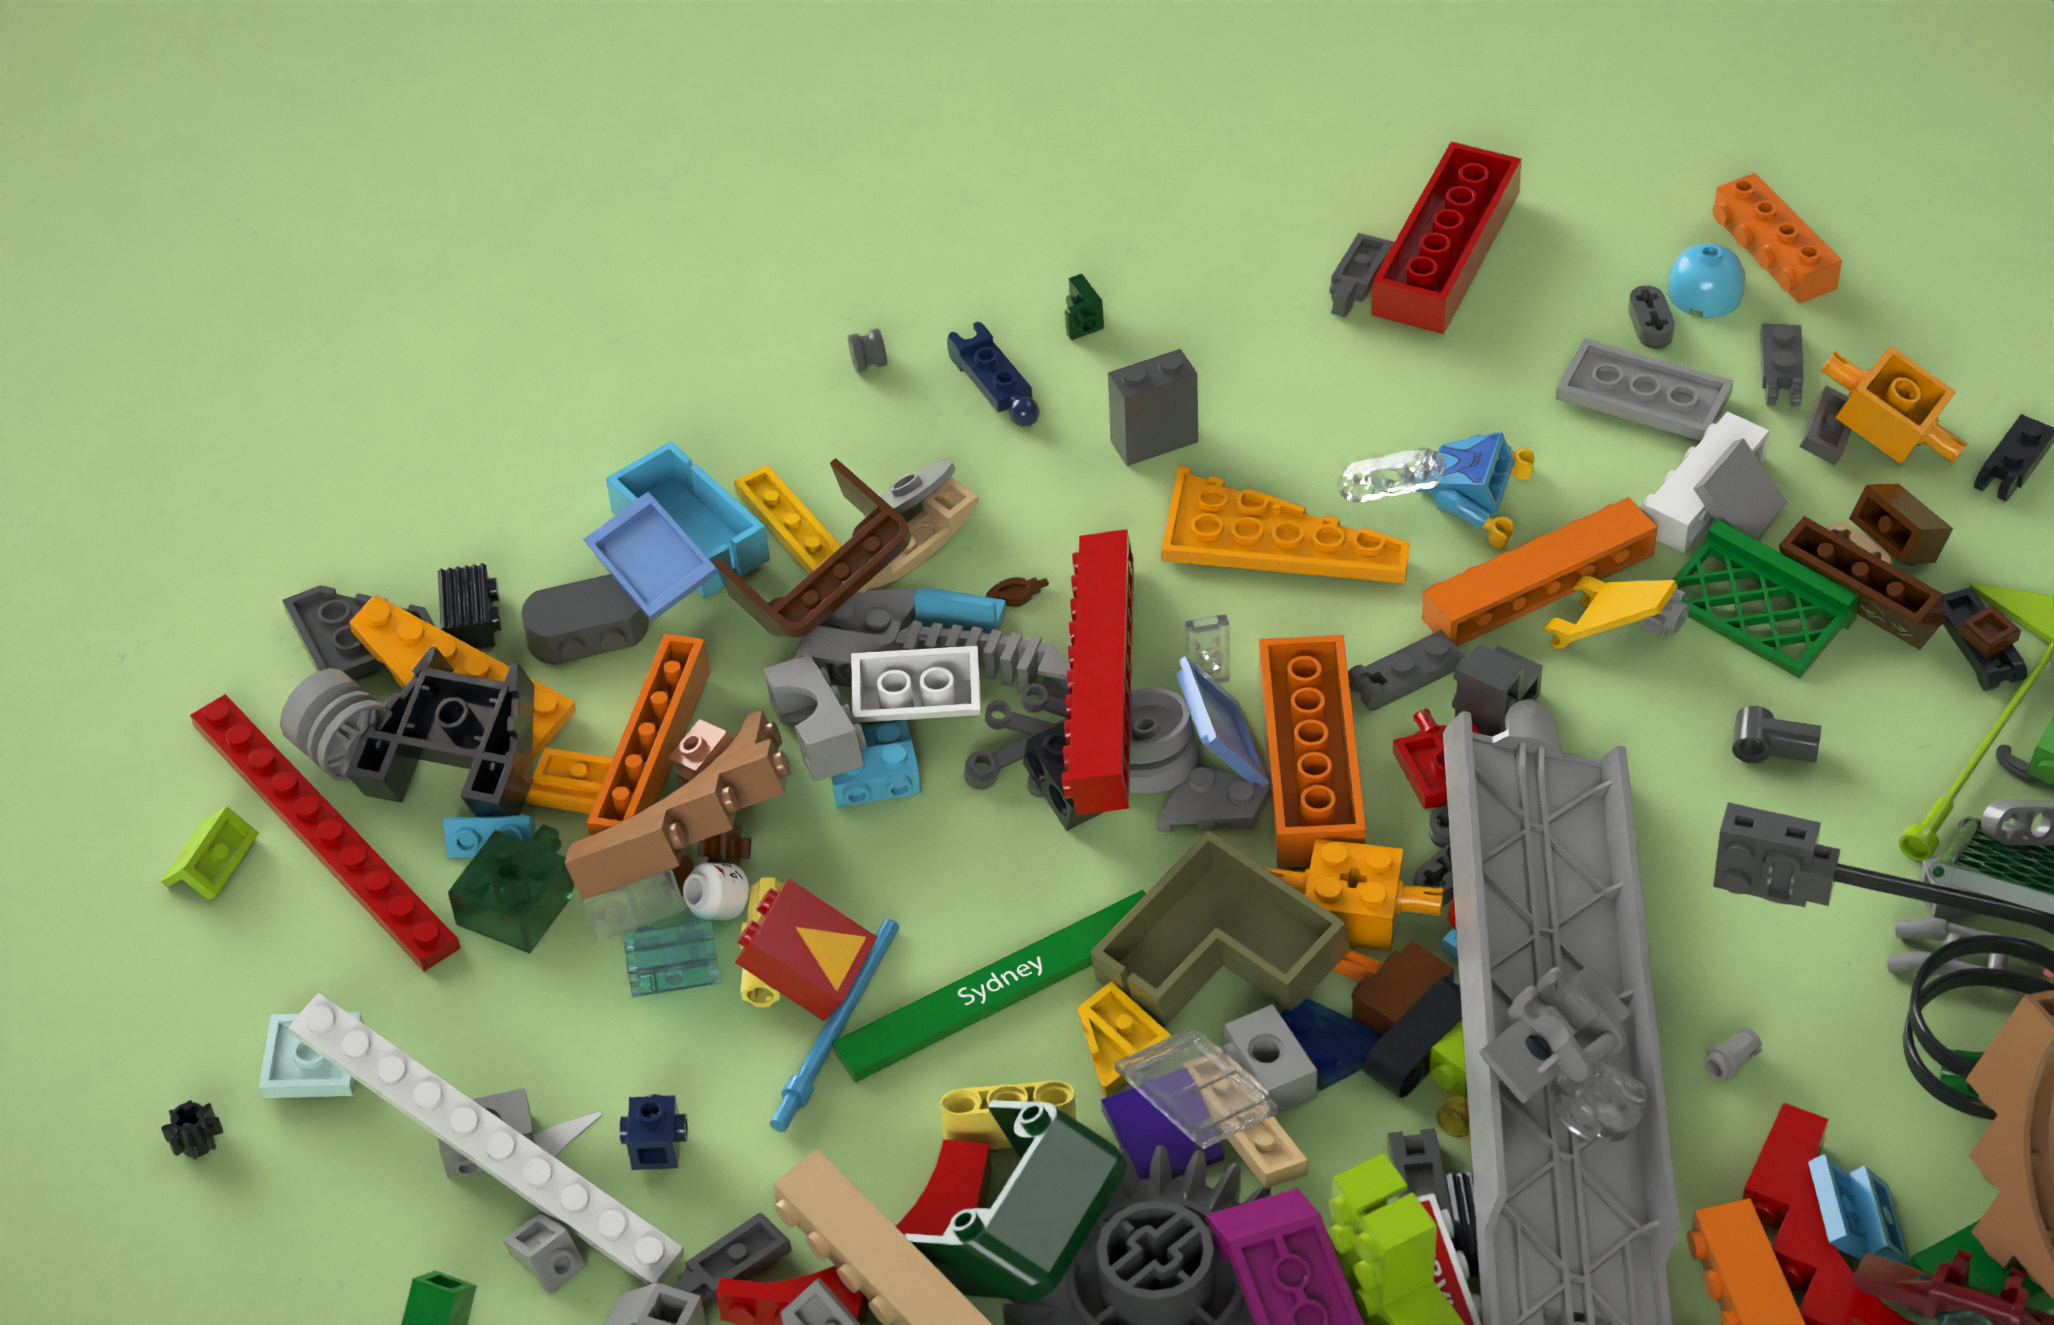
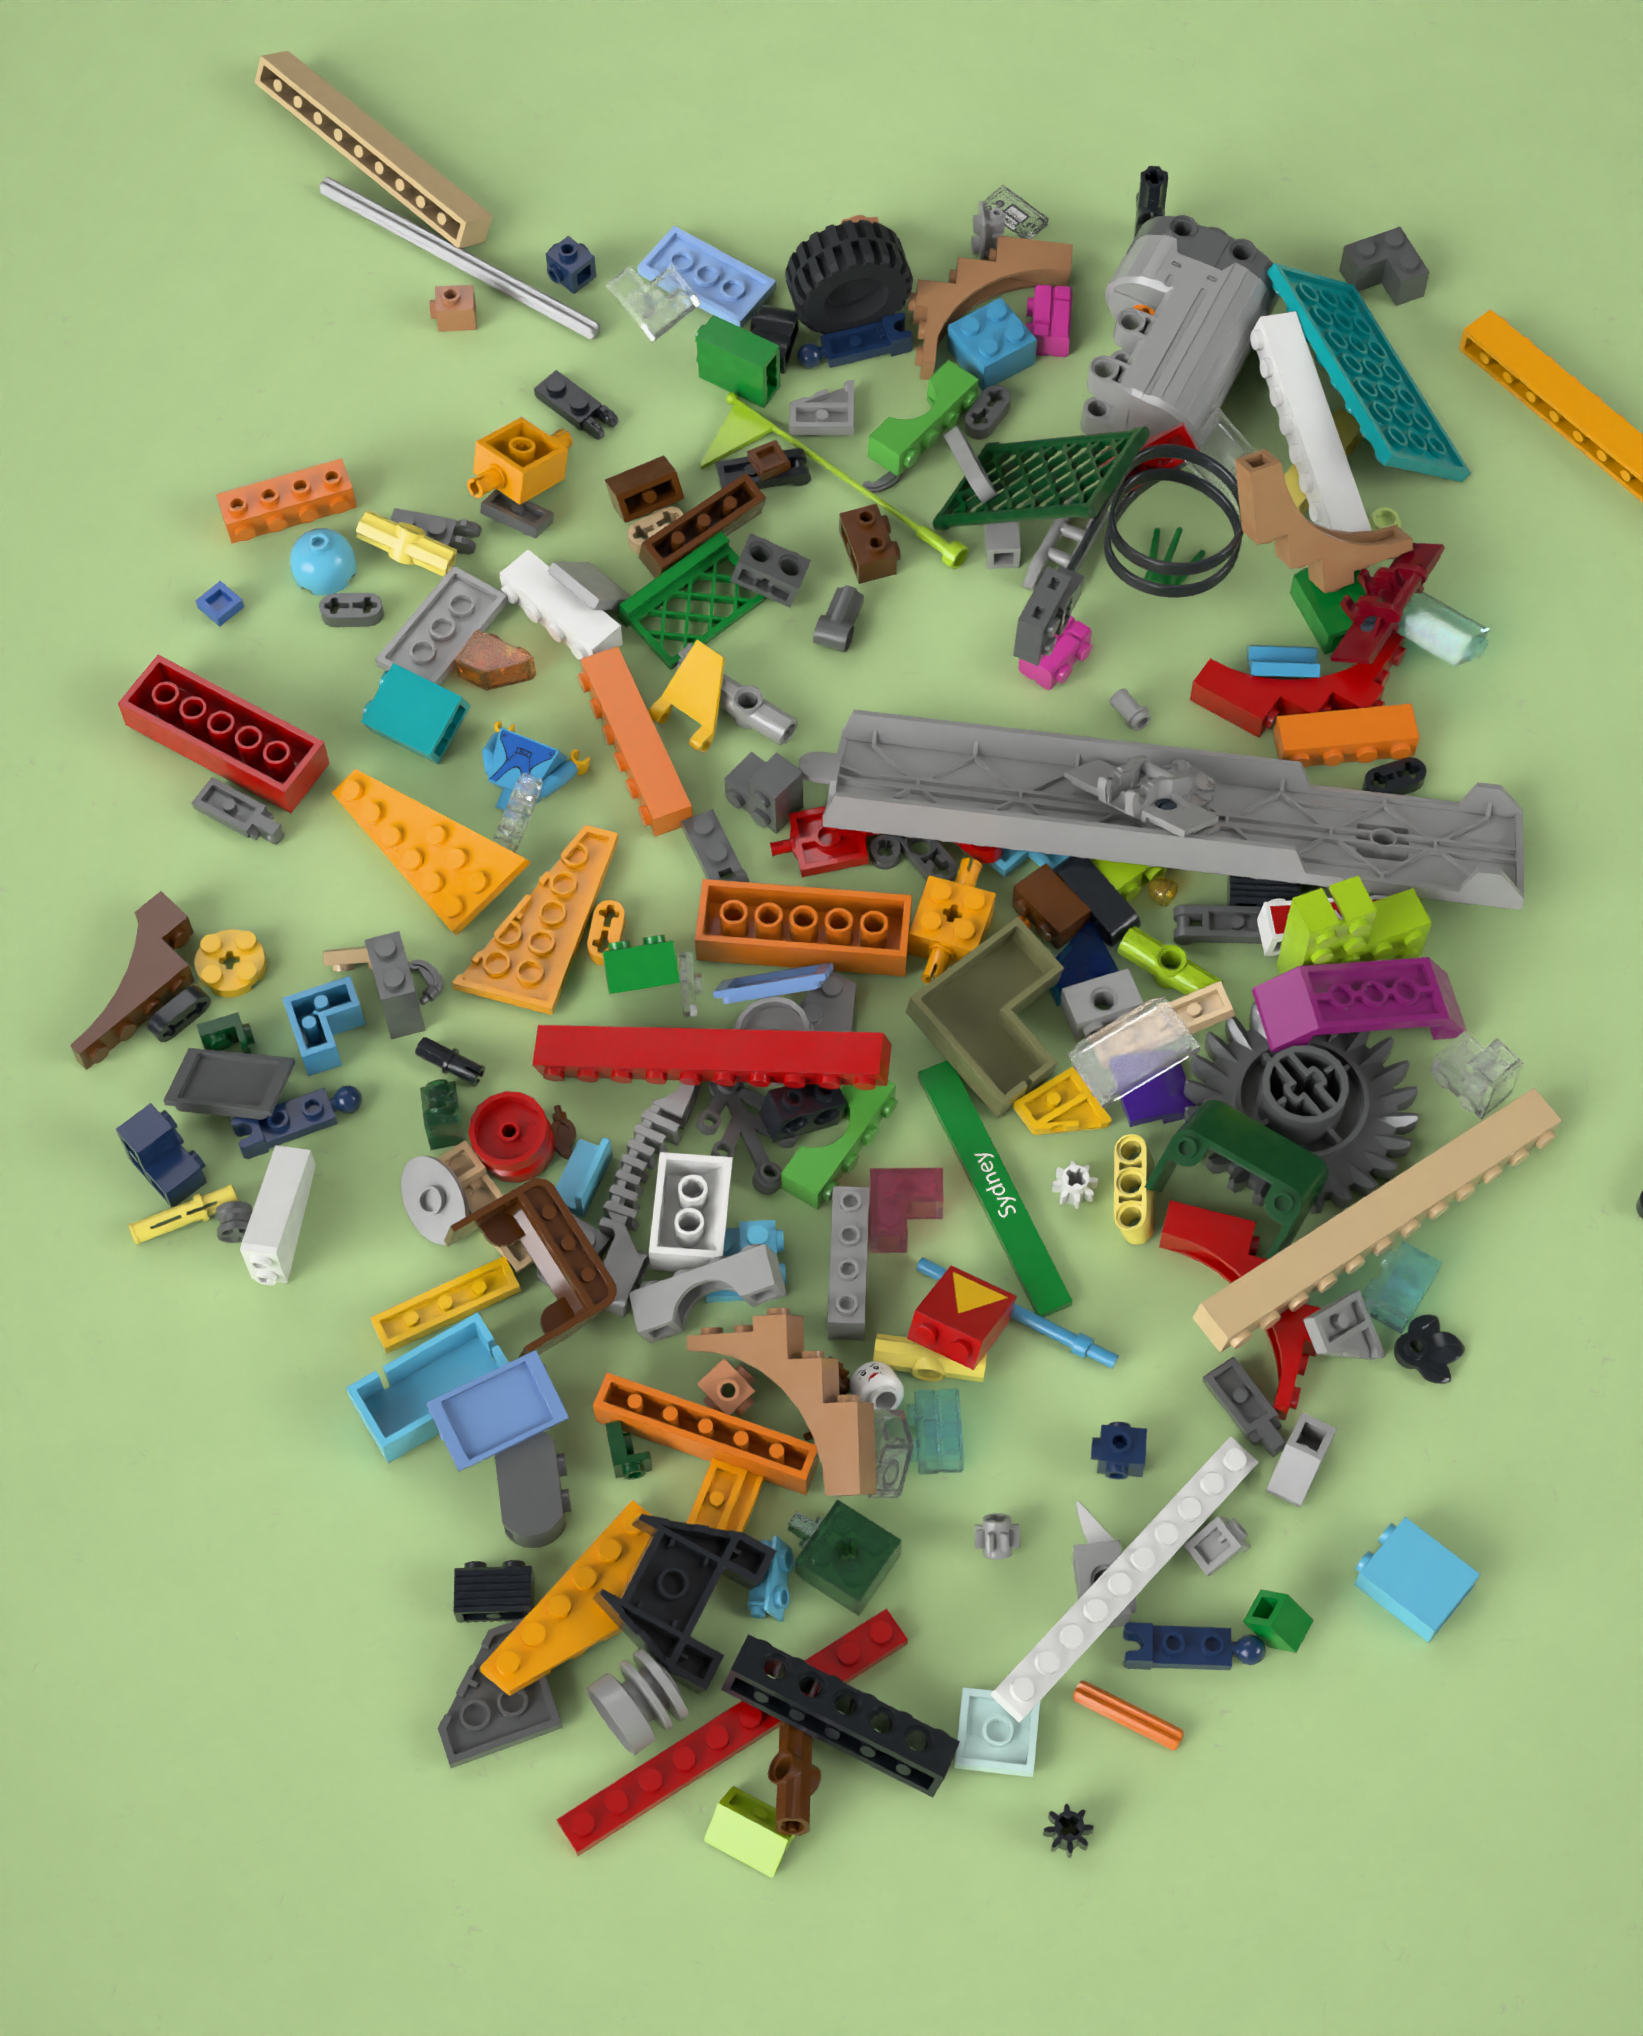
camera: 85 degrees left, 15 degrees up
(257, 868) = (795, 1780): none -> reddish brown piece
(332, 1181) = (1128, 1715): none -> orange axle
(355, 795) = (848, 1732): none -> black brick
(411, 1225) = (1188, 1647): none -> dark blue plate
(542, 1024) = (997, 1536): none -> light grey gear
(624, 686) = (624, 1461): none -> dark green bracket
(854, 293) = (142, 1229): none -> light yellow pin
(872, 373) = (278, 1215): none -> white slope
(875, 848) = (848, 1263): none -> light grey brick
(934, 278) = (158, 1154): none -> dark blue brick
(955, 880) = (900, 1196): none -> clear pink brick
(990, 536) = (512, 1136): none -> red wheel
(1008, 478) = (442, 1114): none -> clear green slope
(1009, 1057) = (1074, 1184): none -> white gear
(1023, 315) = (229, 1083): none -> dark grey piece
(1082, 363) = (319, 1015): none -> dark azure brick
(1083, 843) = (817, 1169): none -> bright green arch
(1084, 483) = (450, 1061): none -> black axle
(1103, 270) = (179, 1013): none -> black beam
(1139, 242) = (151, 981): none -> reddish brown arch
(1185, 285) = (223, 945): none -> yellow plate
(1187, 458) = (431, 977): none -> dark grey piece
(1208, 403) = (345, 958): none -> tan plate
(1212, 587) = (640, 965): none -> green brick
(1277, 589) = (599, 931): none -> light orange beam
(1347, 422) = (440, 858): none -> light orange wing
(1350, 1109) = (1153, 954): none -> lime piece
(1516, 378) = (415, 713): none -> teal brick
(1610, 435) = (492, 663): none -> clear orange slope
(1615, 668) = (762, 716): none -> light grey piece
(1622, 212) = (220, 603): none -> plate
(1748, 335) = (406, 543): none -> light yellow piece
(1798, 960) = (1071, 646): none -> dark pink brick
(1813, 652) = (770, 570): none -> dark grey brick
(1902, 750) = (869, 543): none -> reddish brown brick

